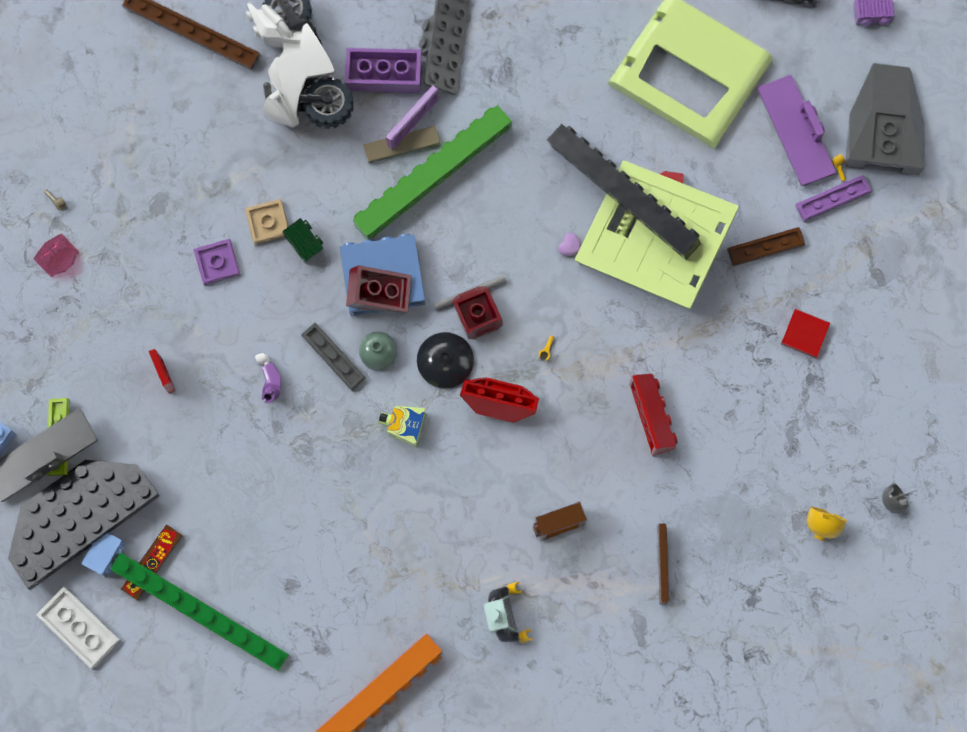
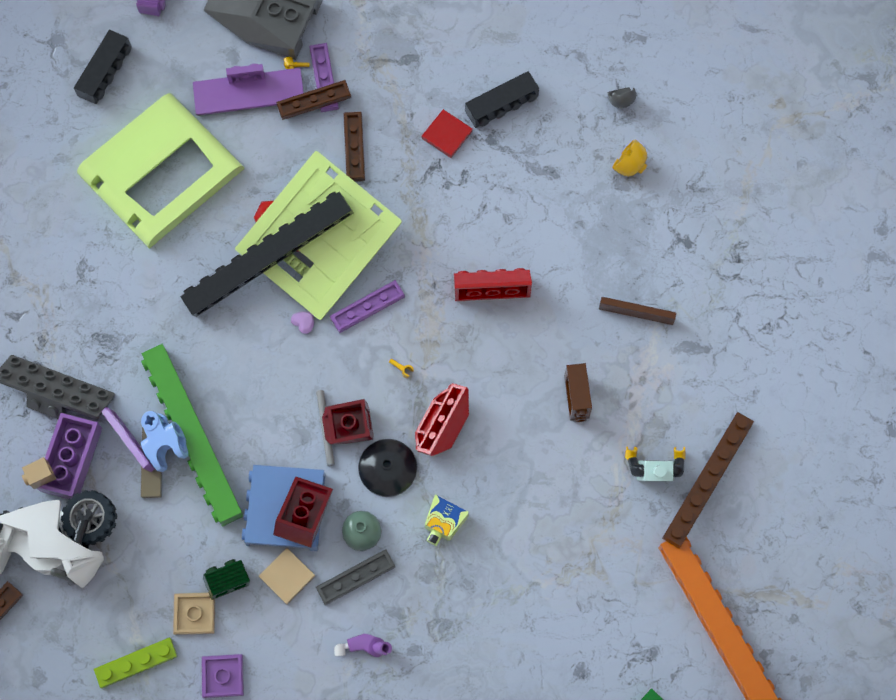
camera: 75 degrees left, 5 degrees down
(212, 183) = (135, 662): none -> lime plate
(320, 294) = (286, 576): none -> tan tile
(357, 46) = (38, 473): none -> tan brick
(418, 145) = (160, 438): none -> light blue piece
(504, 668) = (708, 480): none -> reddish brown plate
(601, 301) = (367, 306): none -> medium lavender tile
(803, 194) = (313, 99): none -> reddish brown tile
(856, 378) = (502, 99): none -> black brick

